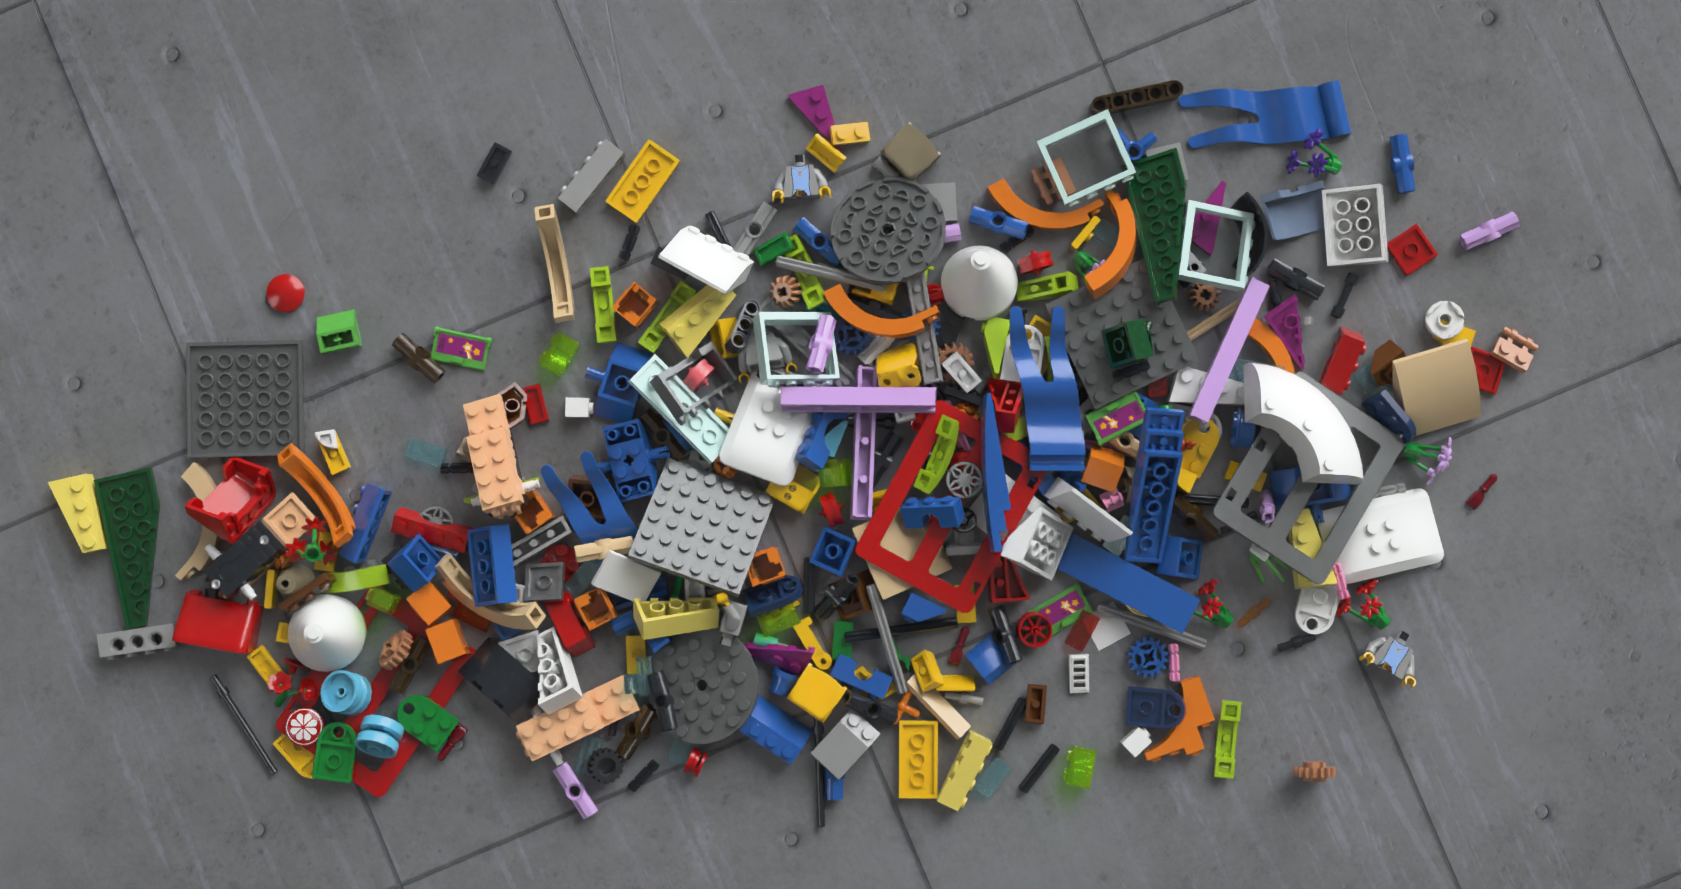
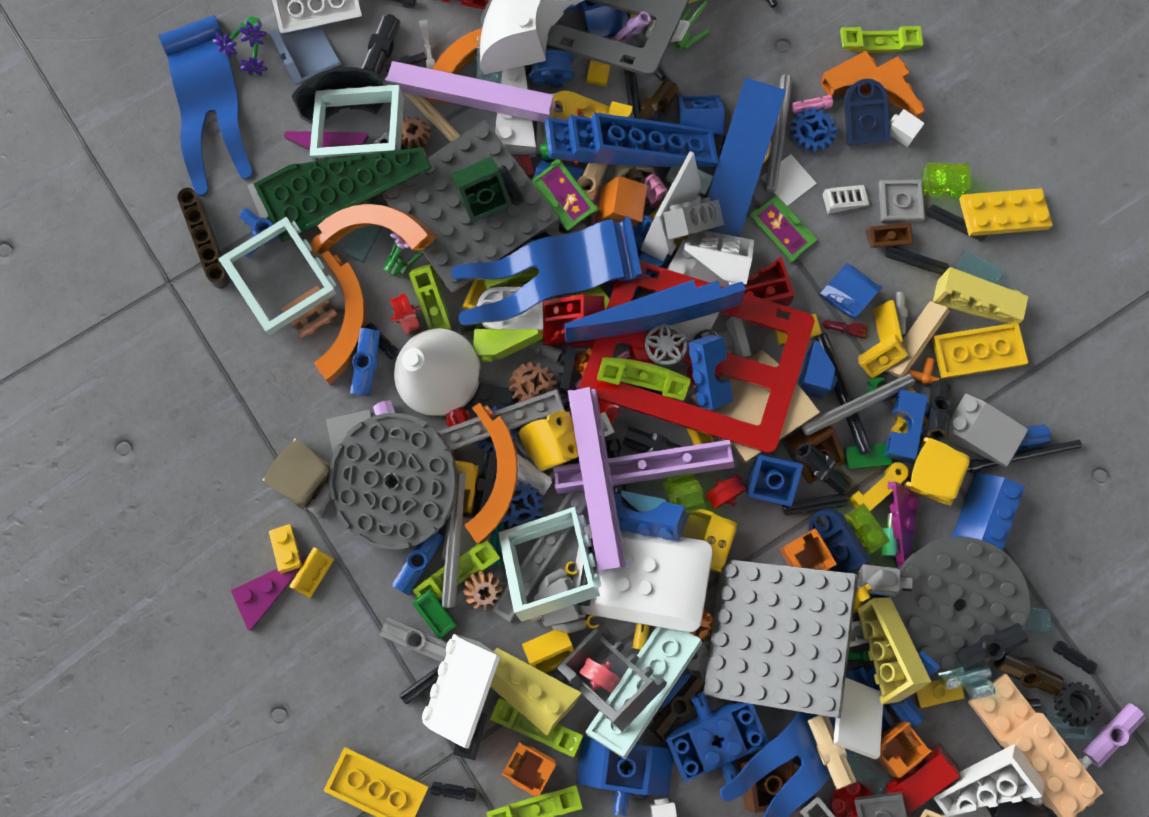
camera: 110 degrees left, 10 degrees down
(695, 757) = (1047, 597): red wheel -> none
(736, 332) = (540, 639): black beam -> none
(782, 681) = (931, 515): blue piece -> none
(800, 182) = (350, 595): torso -> none
(821, 344) = (539, 534): lavender piece -> none
(961, 372) = (542, 371): white plate -> none
(1005, 635) = (824, 278): black piece -> none
(1034, 629) = (811, 249): red wheel -> none
(1040, 813) = (1005, 212): none -> yellow plate
(1068, 723) = (901, 201): none -> light grey tile
(1072, 525) = (692, 217): none -> light grey brick
(1082, 630) = (799, 202): clear red tile -> none
(1085, 234) = (364, 267): yellow plate -> none
(1220, 616) = (752, 65): plant -> none
(1254, 612) = (741, 34): clear orange bar -> none
(1285, 323) = (430, 45): magenta wing -> none

